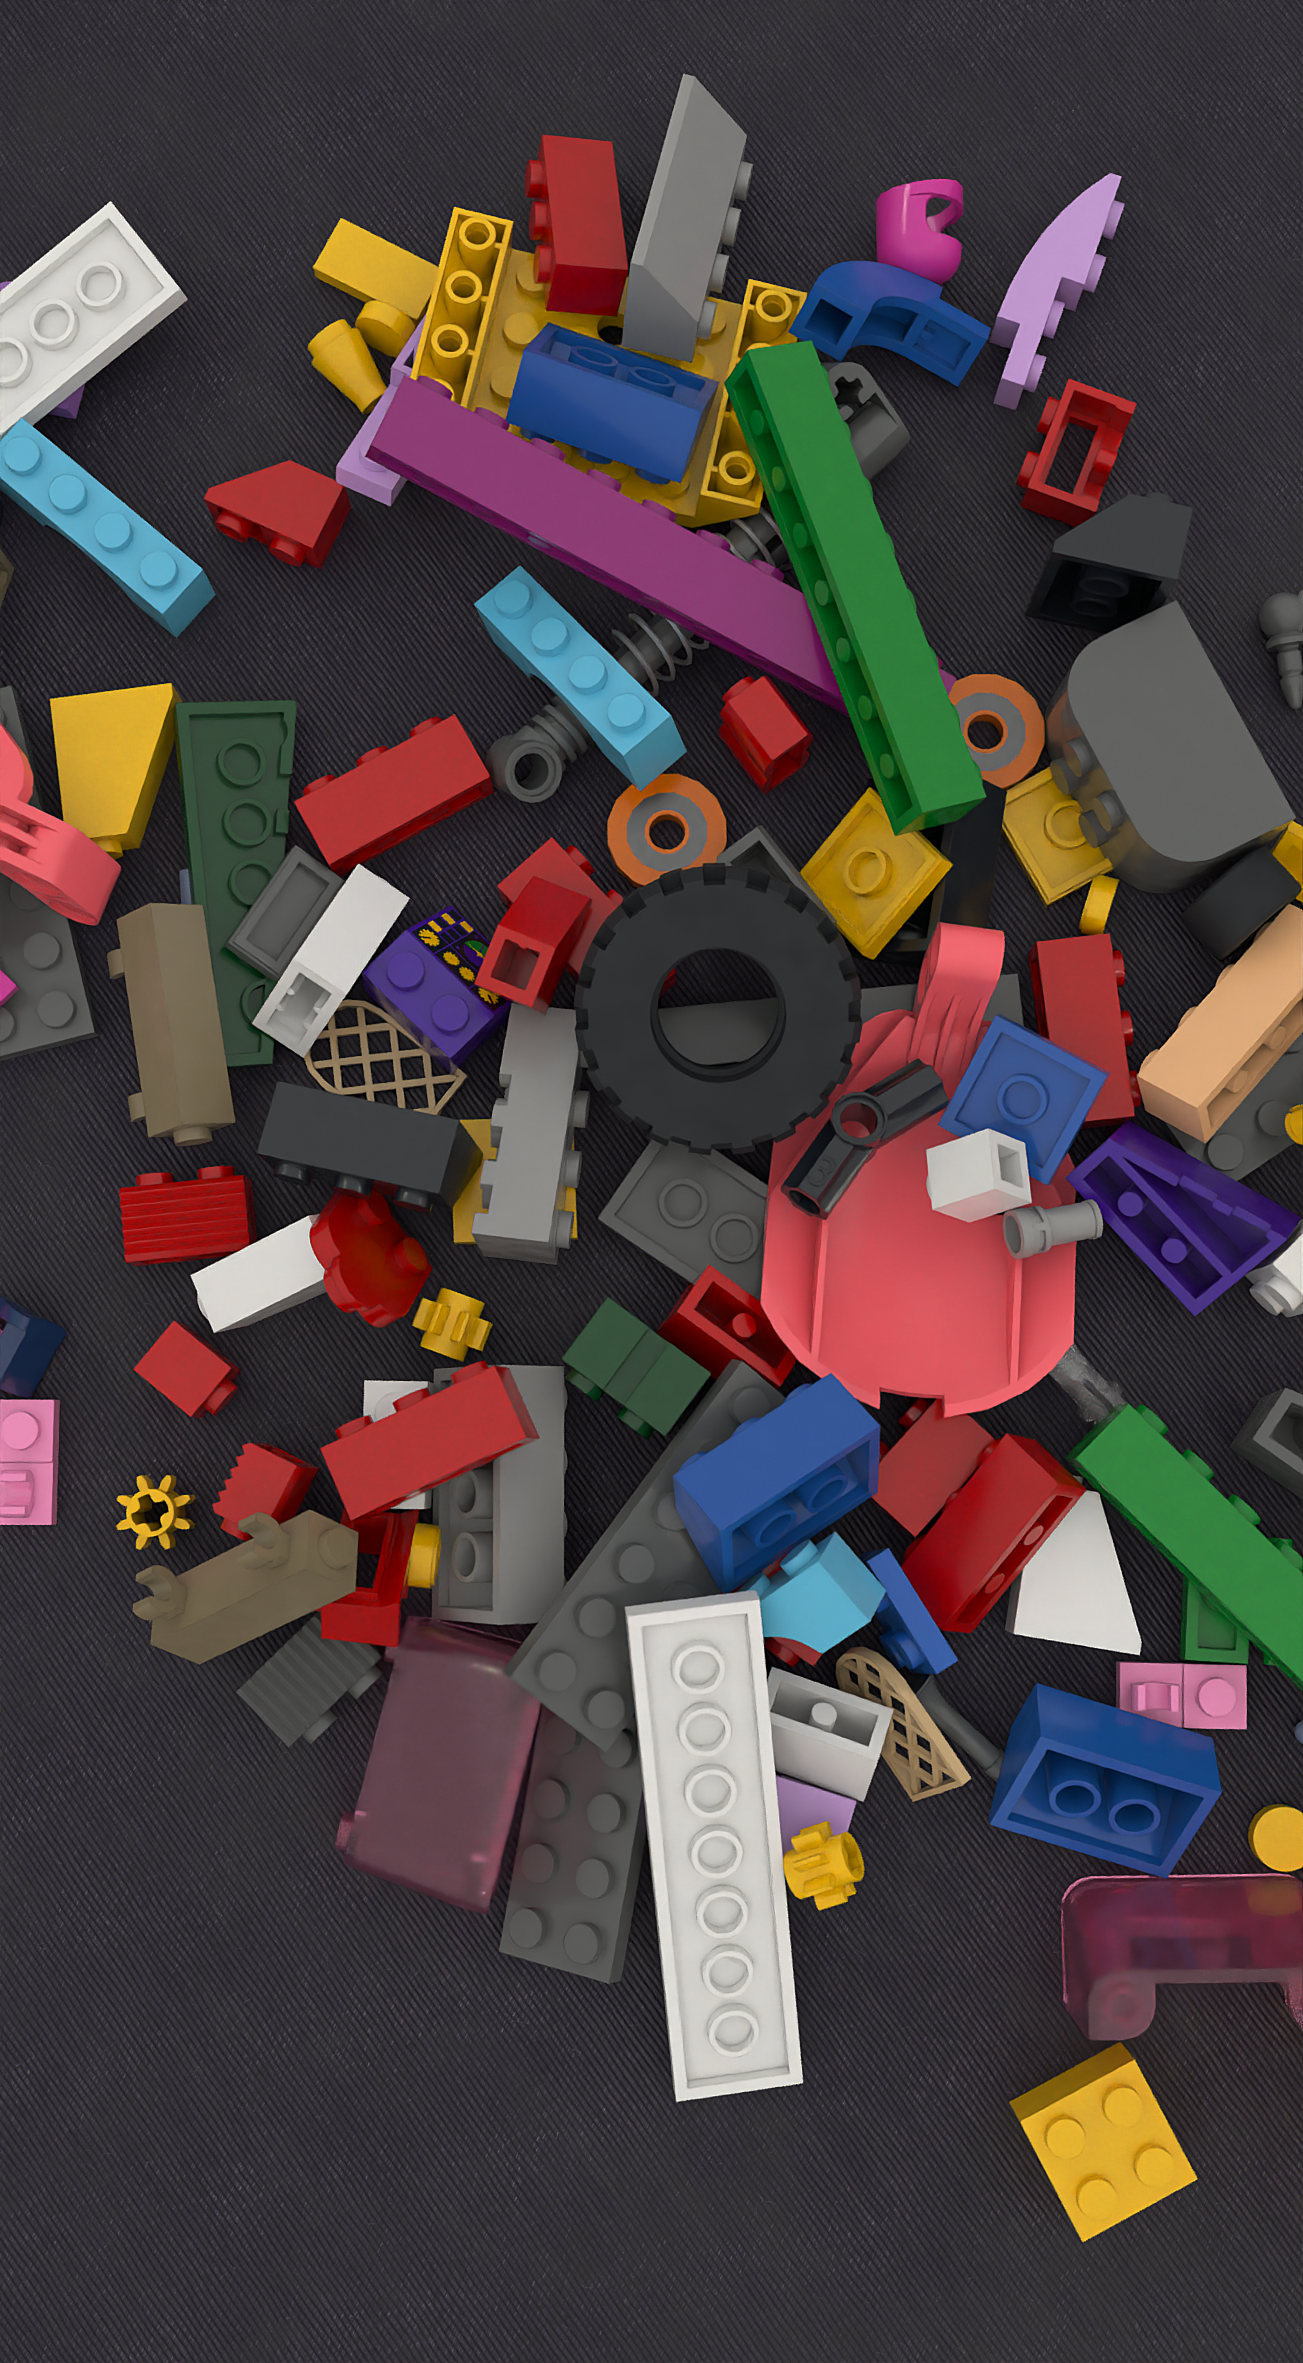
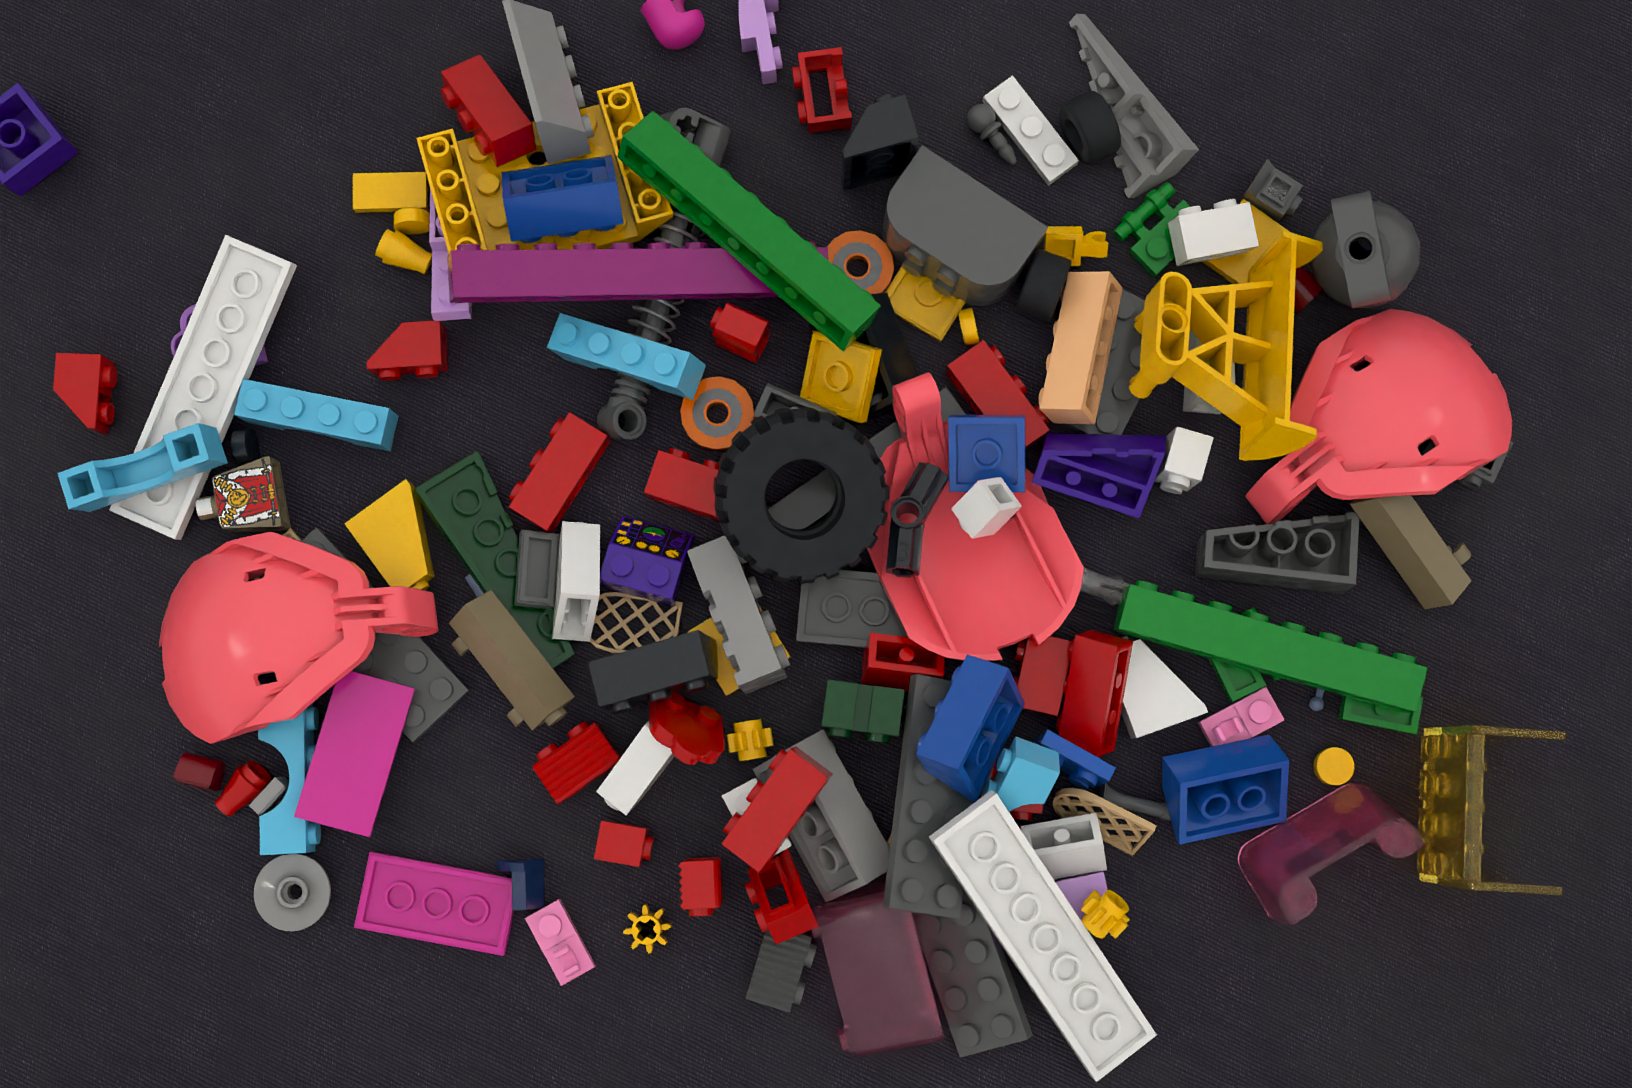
camera: 30 degrees left, 0 degrees up
(250, 1587) = (723, 938): dark tan brick -> none
(425, 1555) = (805, 870): yellow tile -> none
(533, 944) = (683, 513): red slope -> none
(892, 310) = (683, 66): blue arch -> none
(1037, 1229) = (1032, 518): light grey pin -> none
(1103, 2141) = (1327, 976): yellow brick -> none

